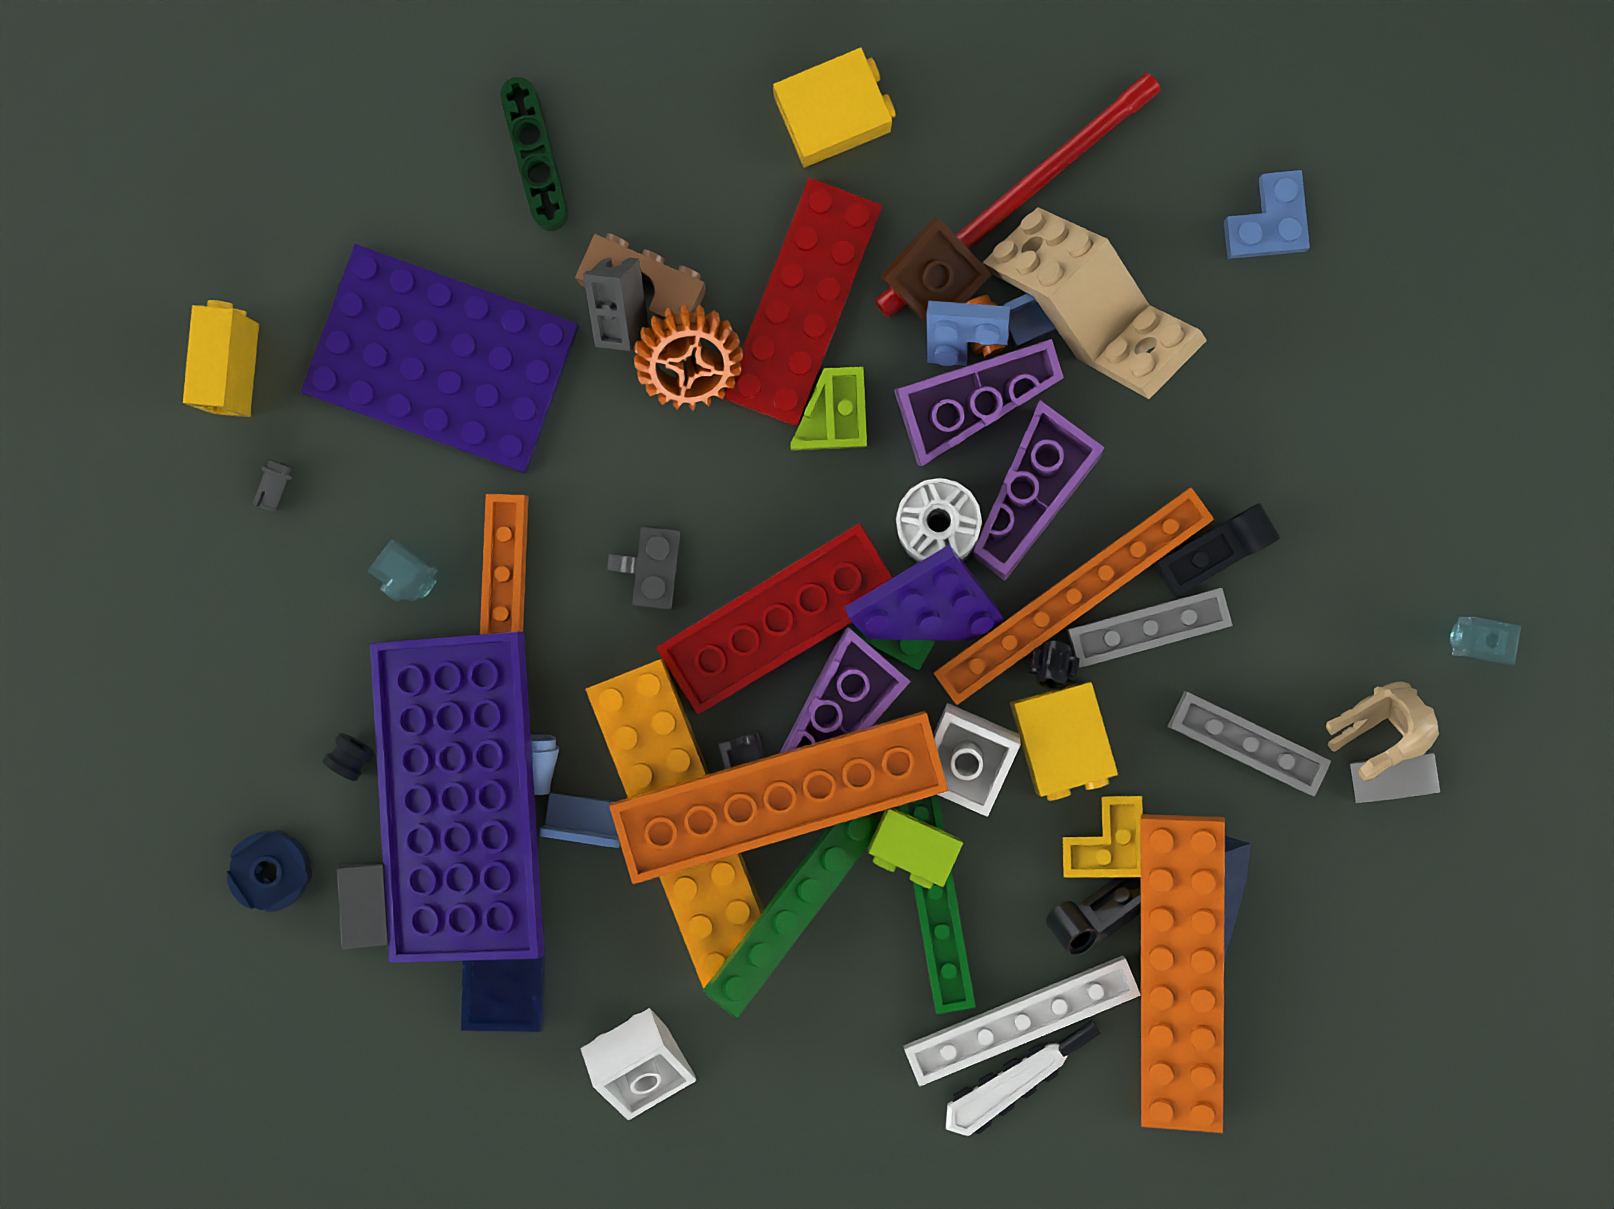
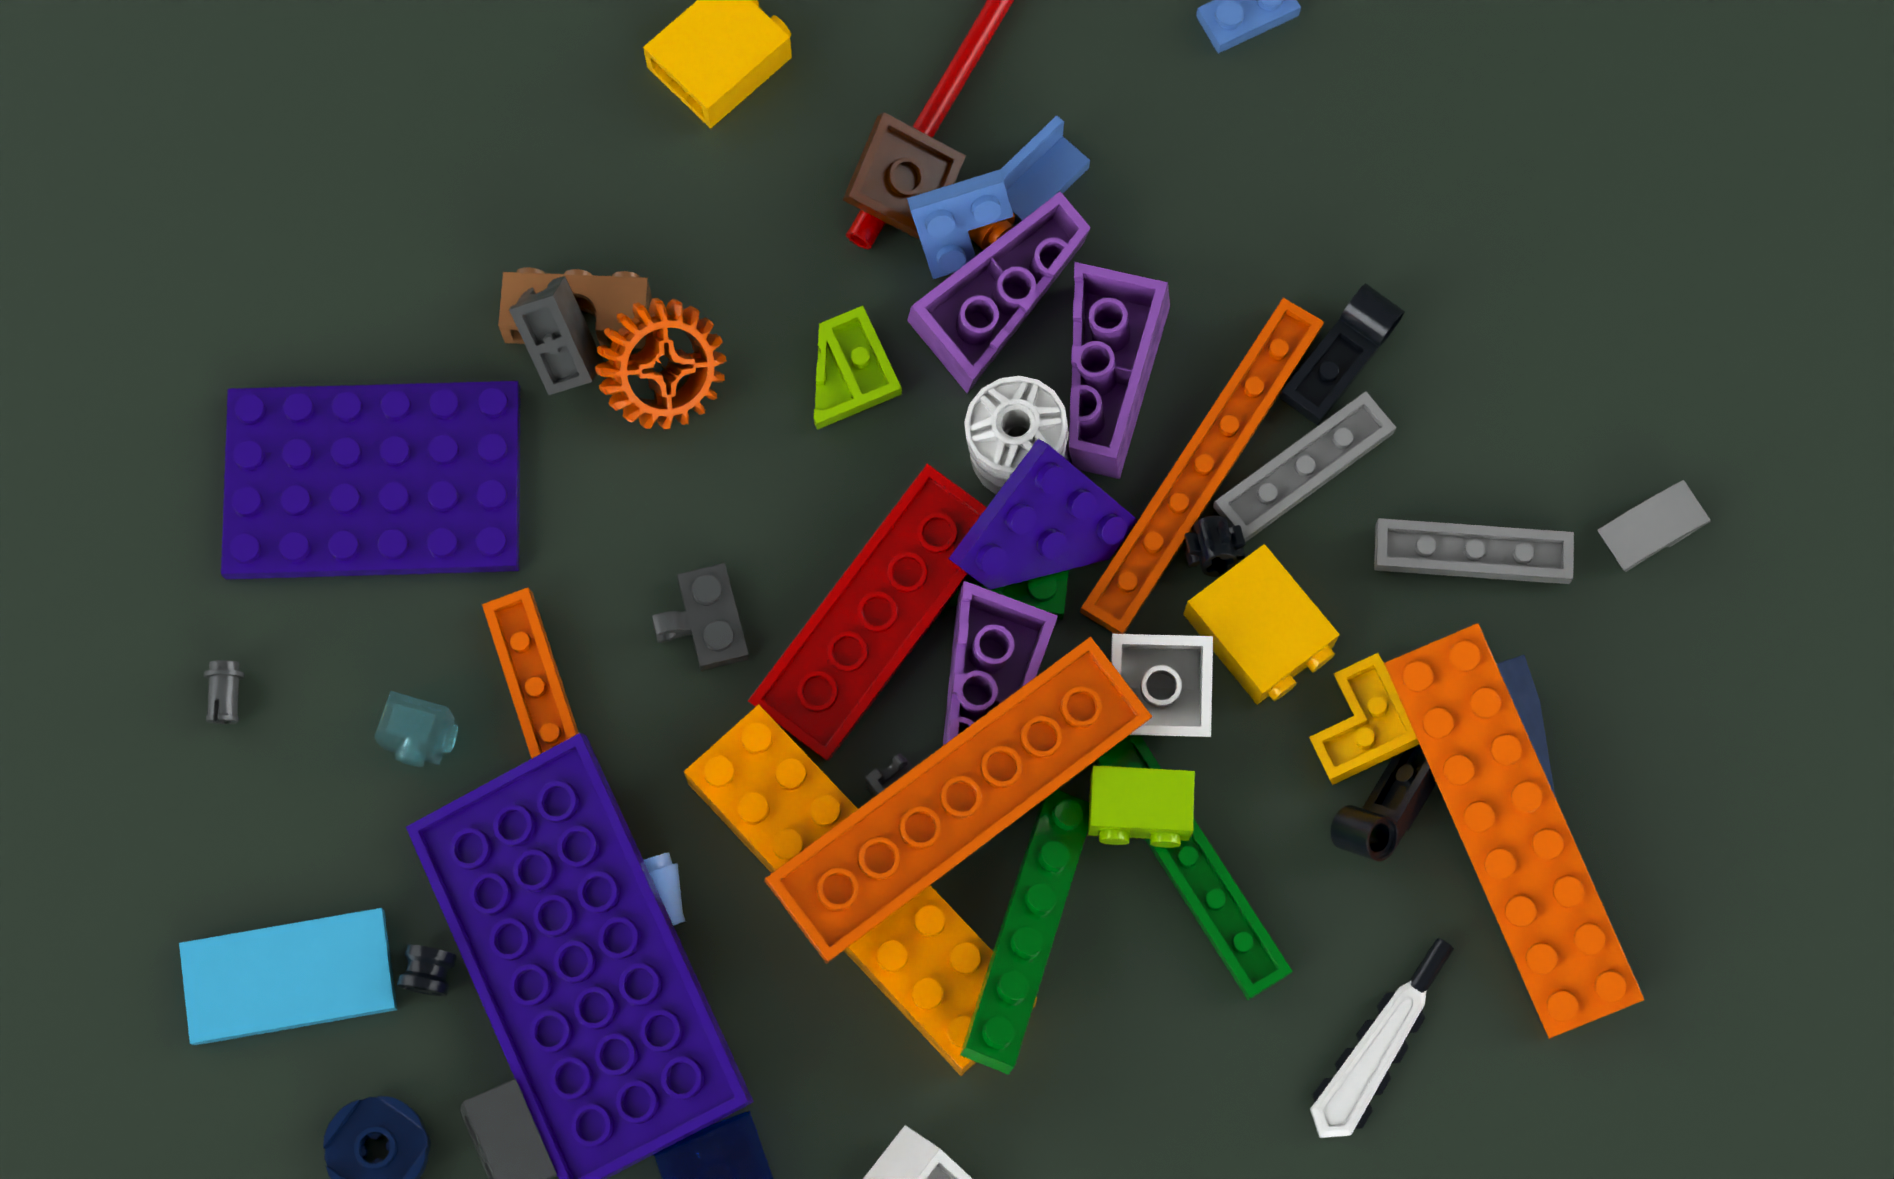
camera: 25 degrees left, 15 degrees down
(221, 359) = (118, 566): yellow brick -> none
(248, 719) = (287, 976): none -> medium azure tile
(533, 154) = (404, 218): dark green beam -> none
(580, 820) = (740, 936): medium blue panel -> none
(803, 301) = (767, 268): red plate -> none
(1021, 1020) = (1352, 969): white plate -> none
(1094, 301) = (1089, 138): tan bracket -> none
(1407, 714) = (1611, 442): tan piece -> none
(1485, 640) = (1682, 338): clear light blue brick -> none

